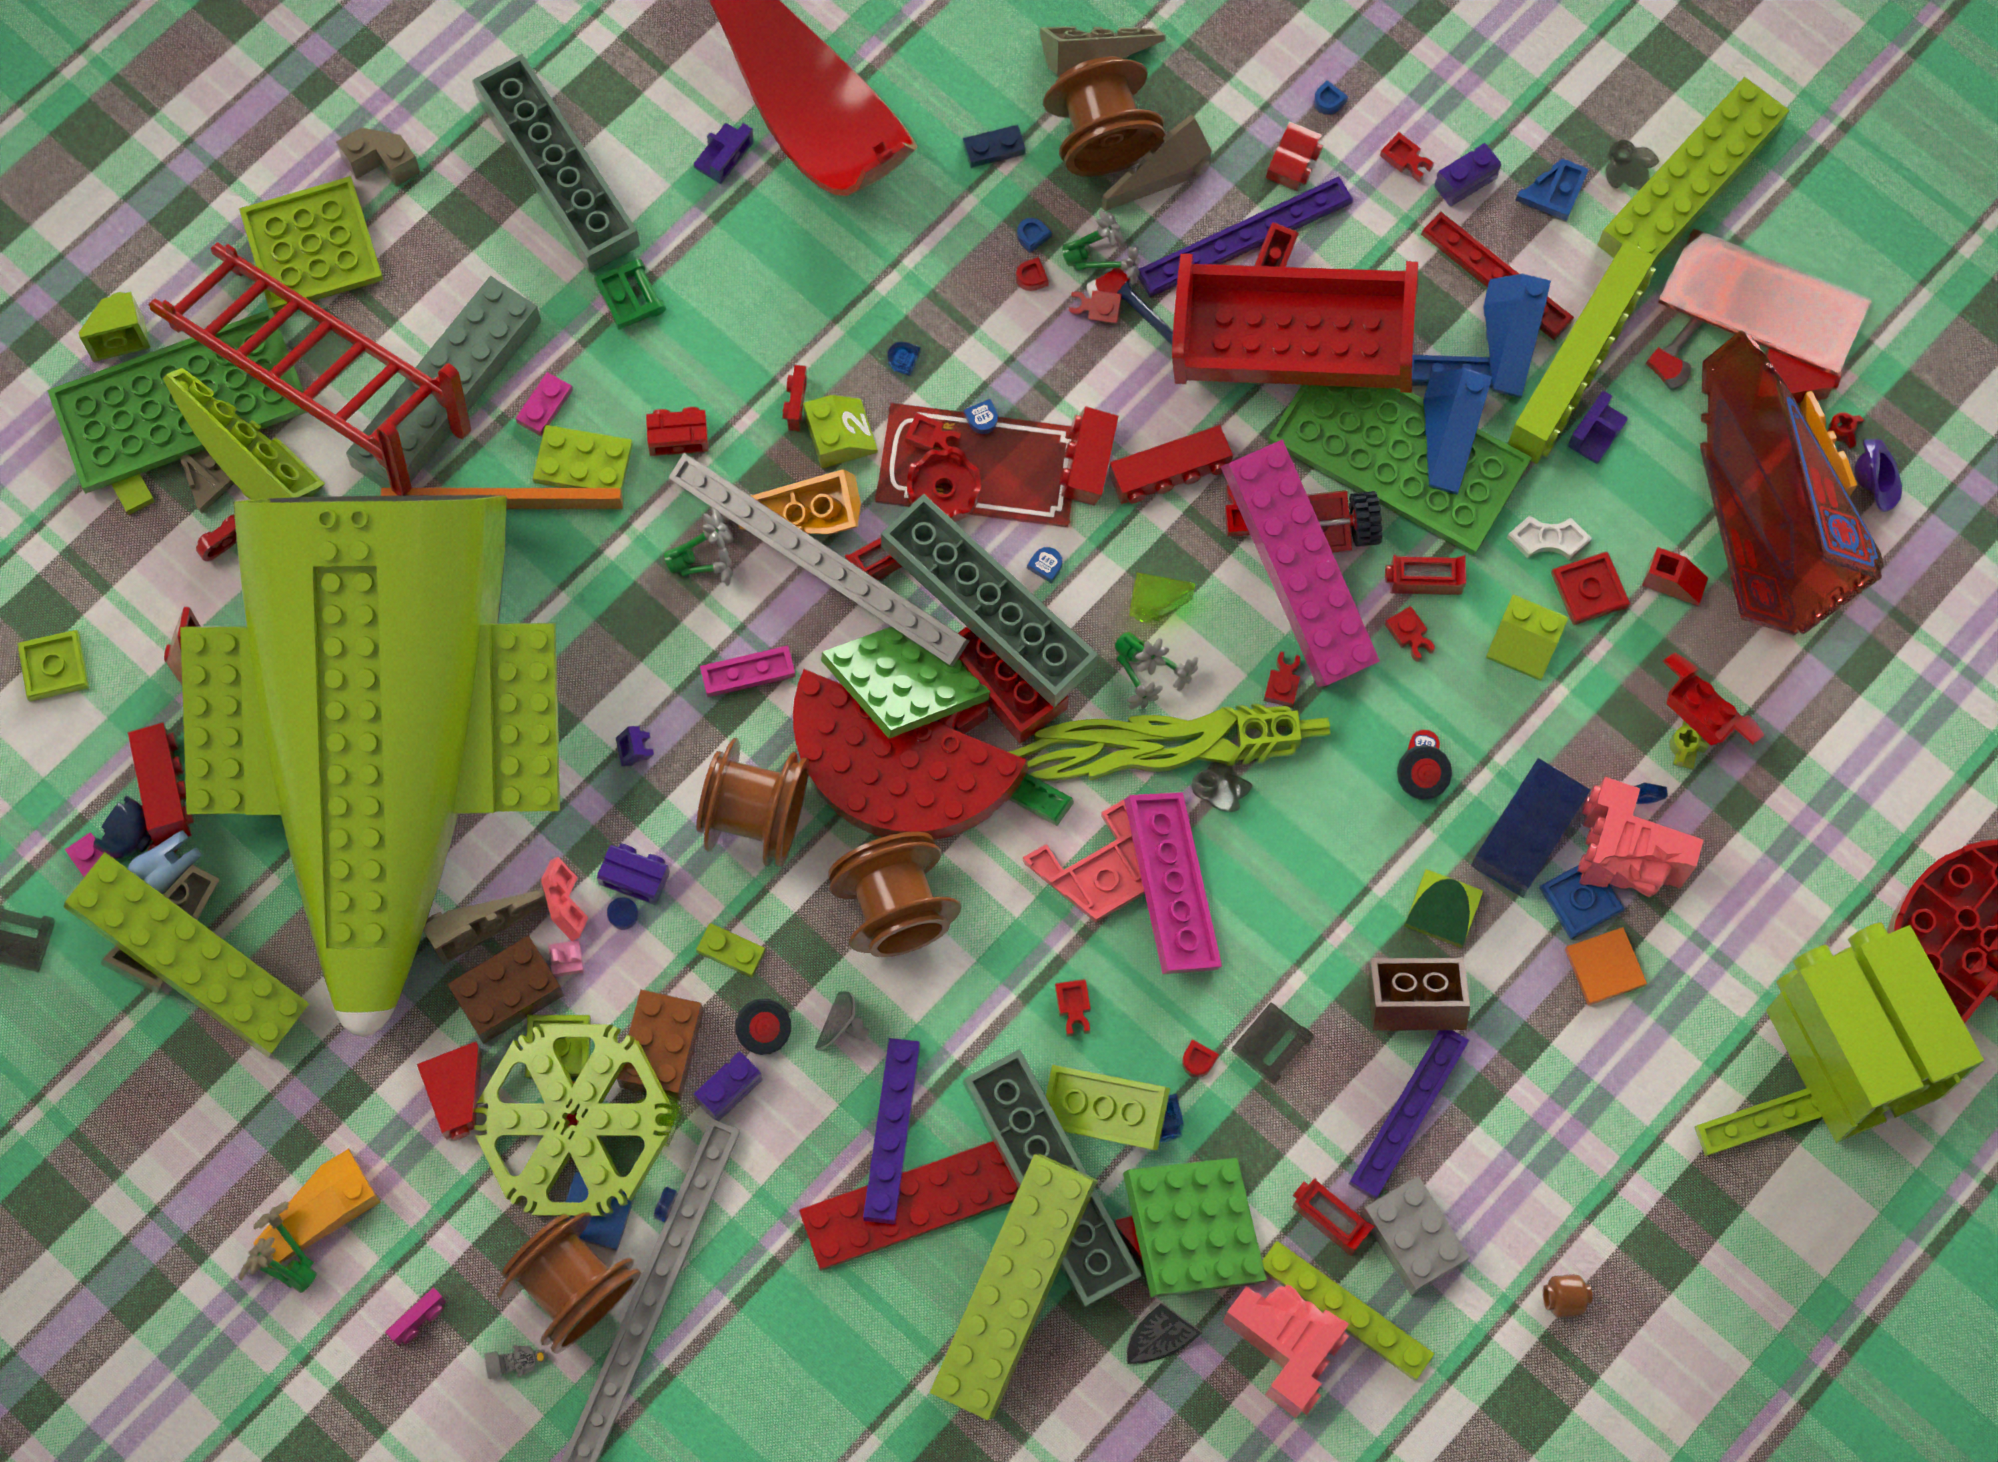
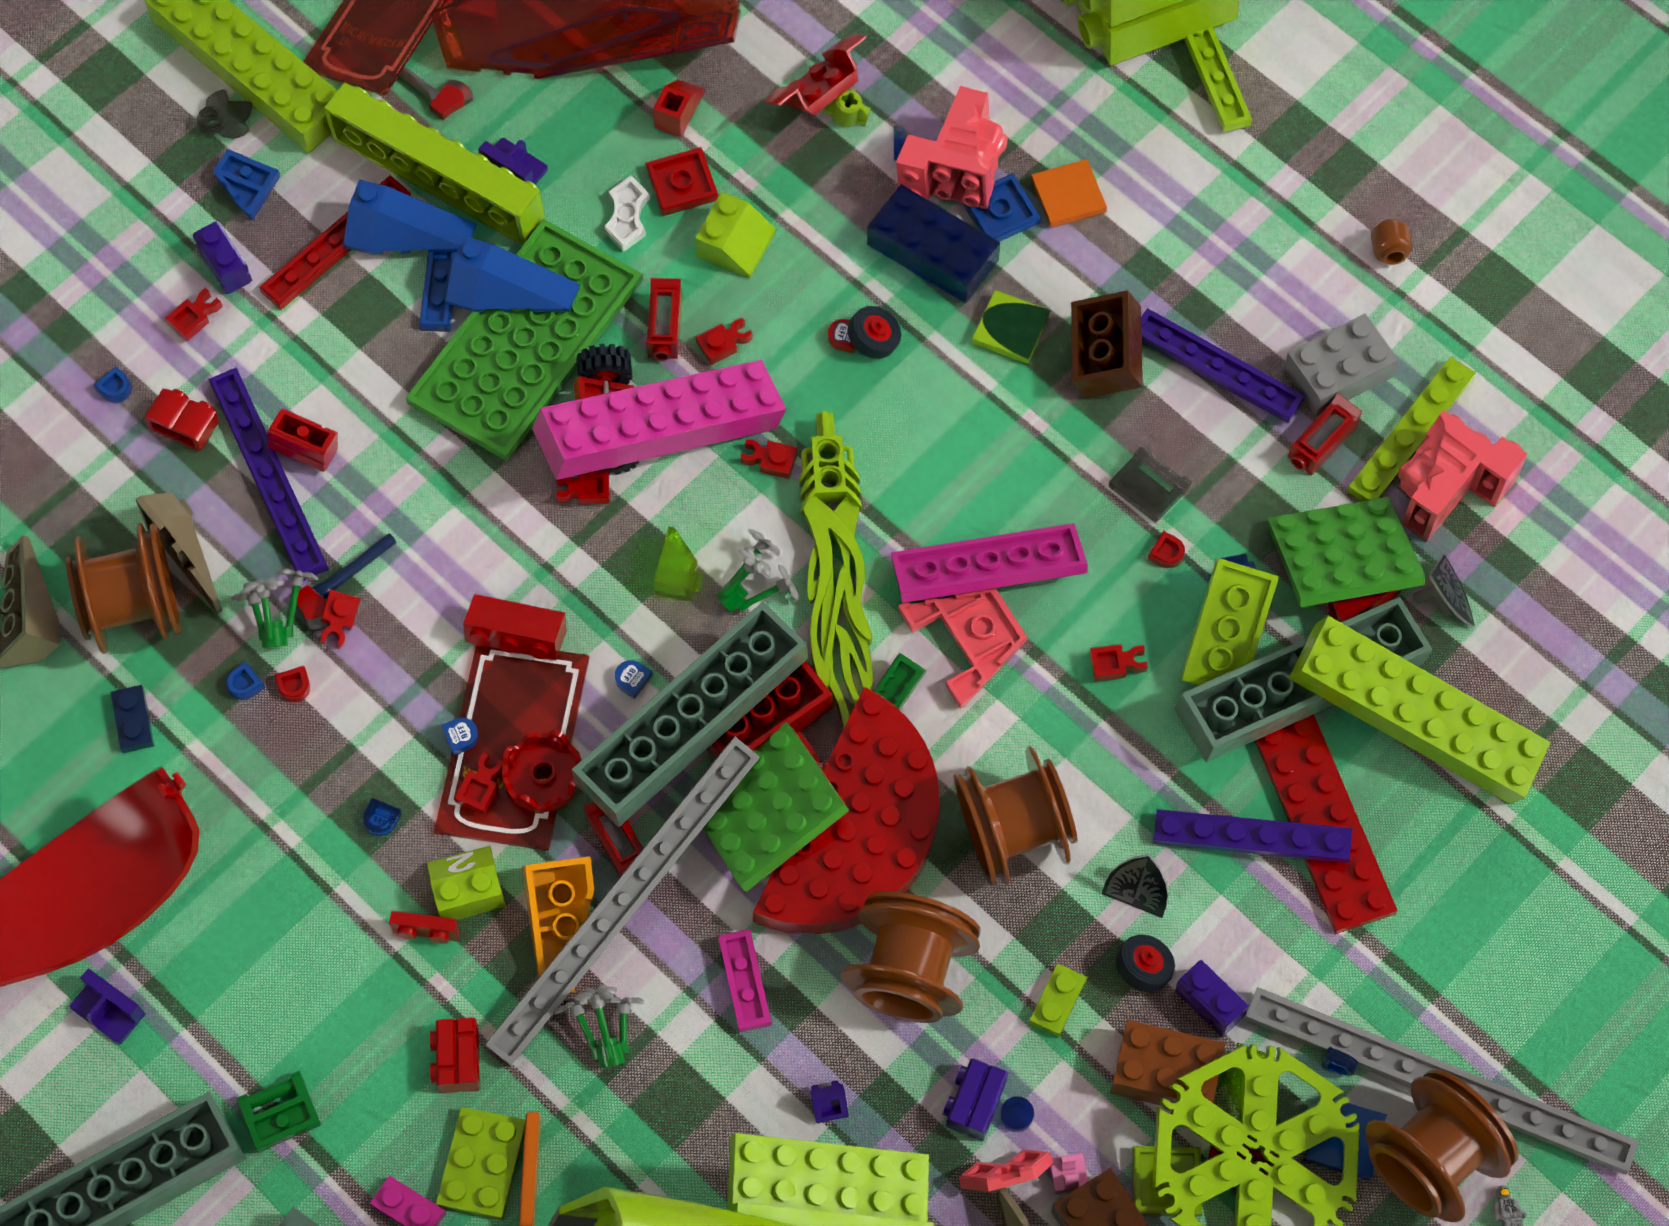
camera: 85 degrees left, 5 degrees down
(1170, 465) = (529, 550): red brick -> none
(1224, 787) = (885, 515): clear smoke plate -> none
(1294, 325) = (393, 403): red piece -> none

